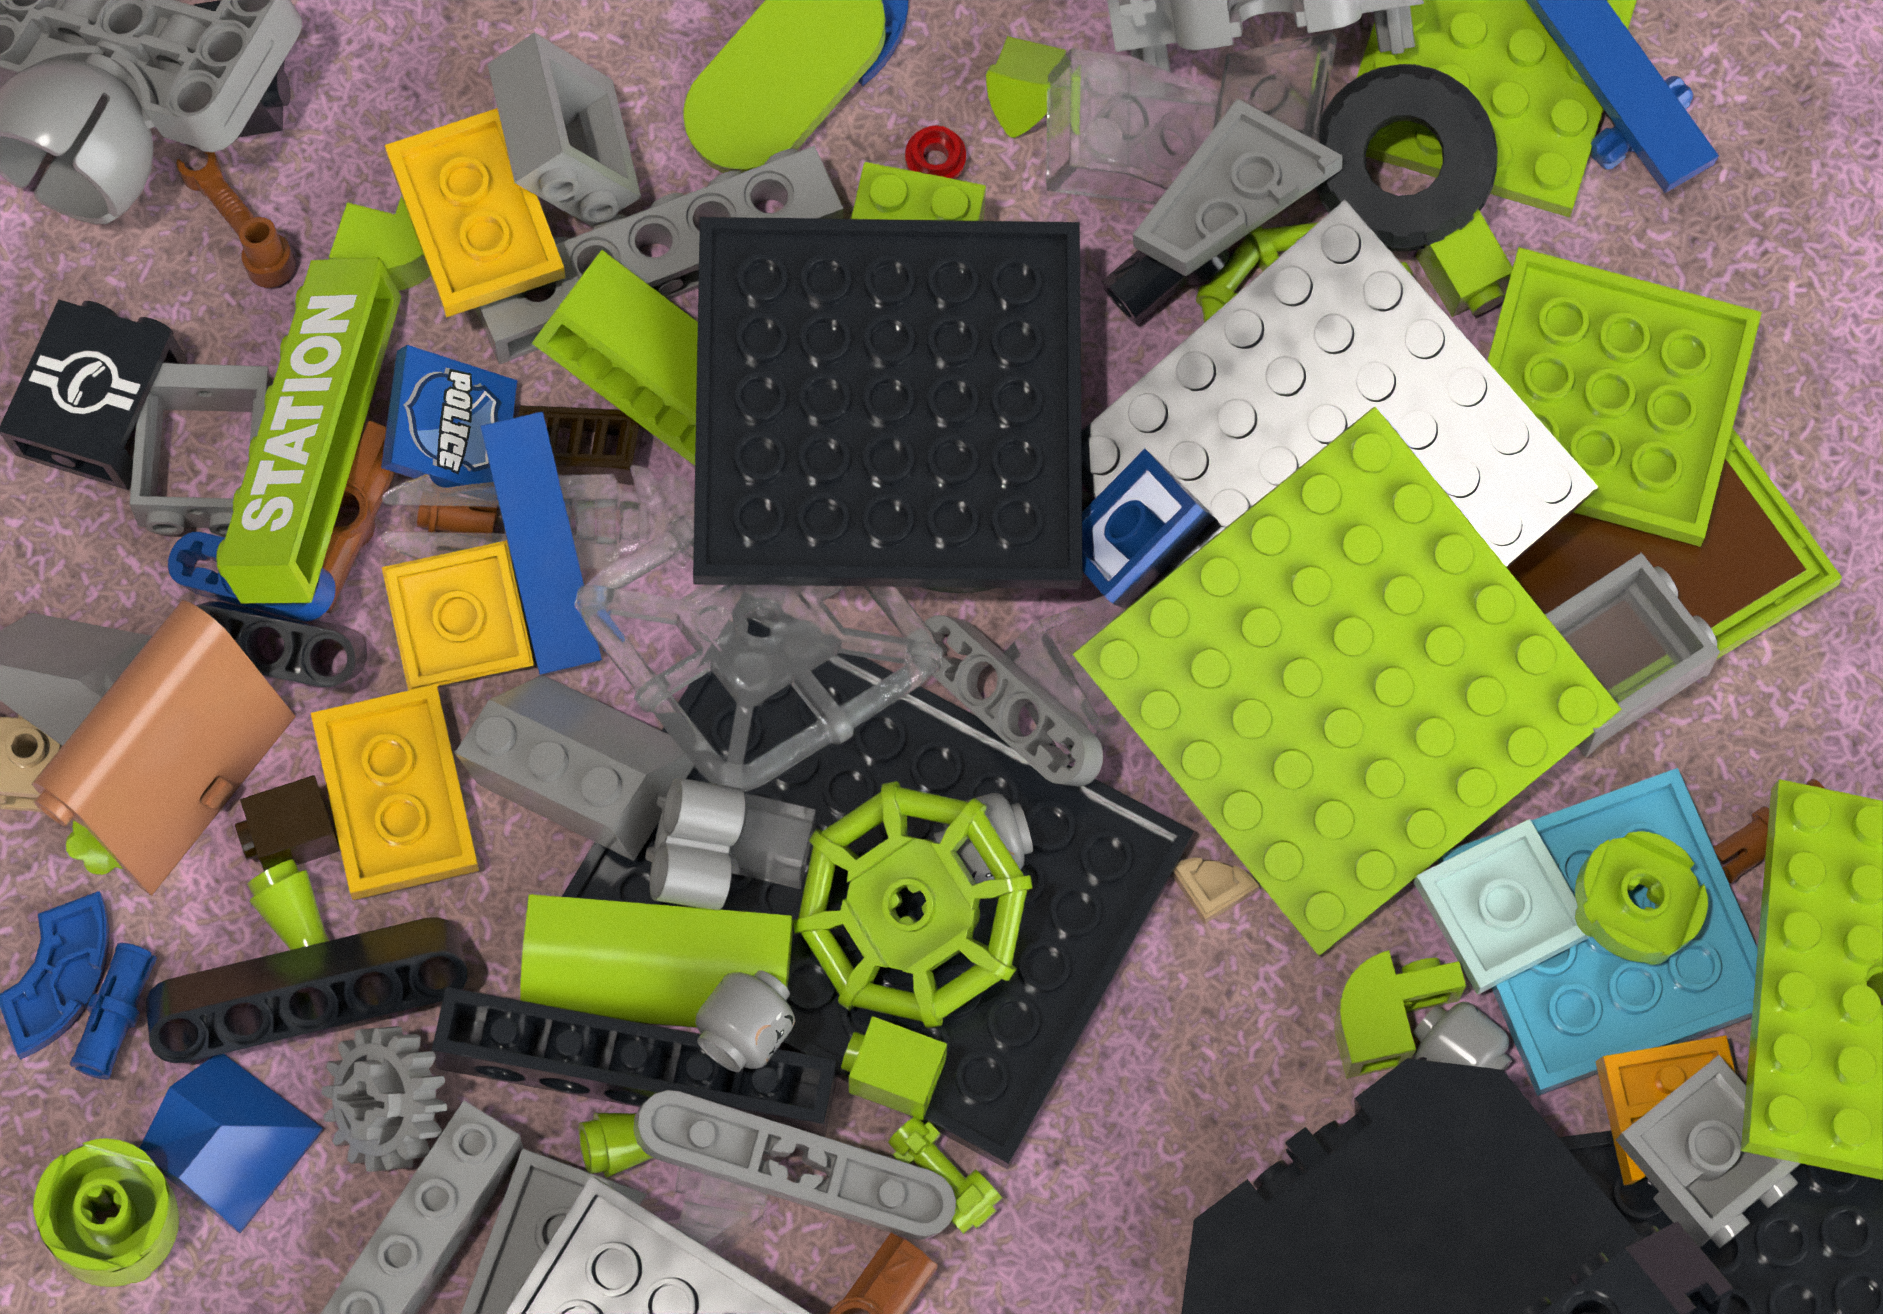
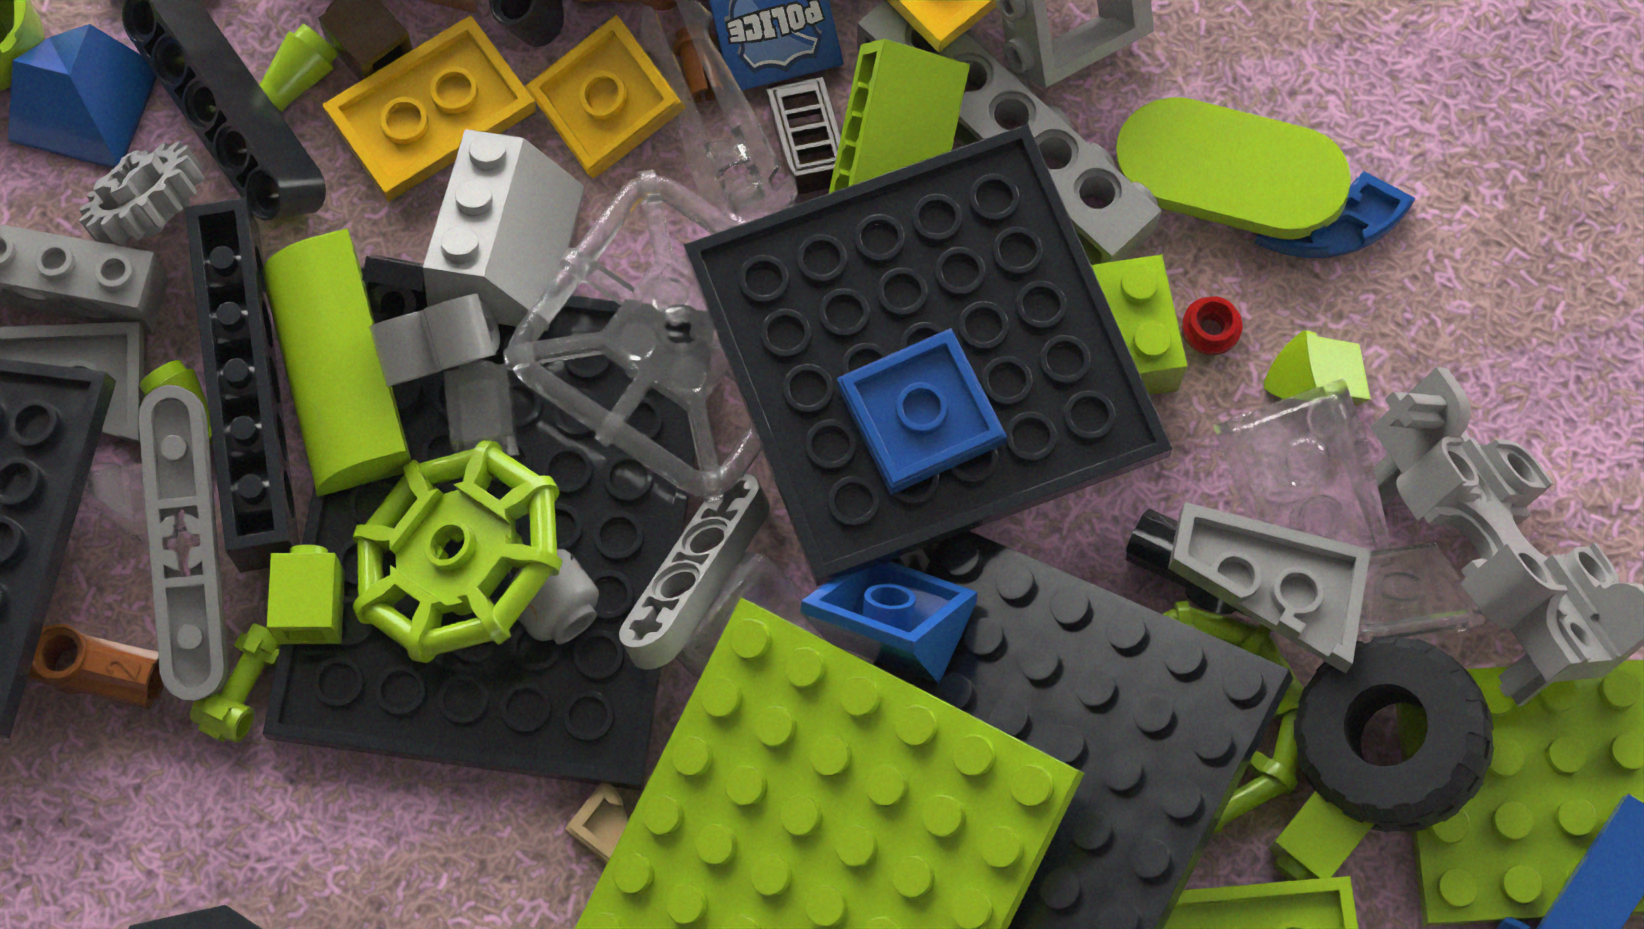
camera: 70 degrees right, 0 degrees up
(539, 541) = (698, 120): blue tile -> none
(590, 867) = (394, 275): none -> black tile
(745, 1020) = (285, 442): light grey head -> none
(957, 423) = (921, 411): none -> blue tile

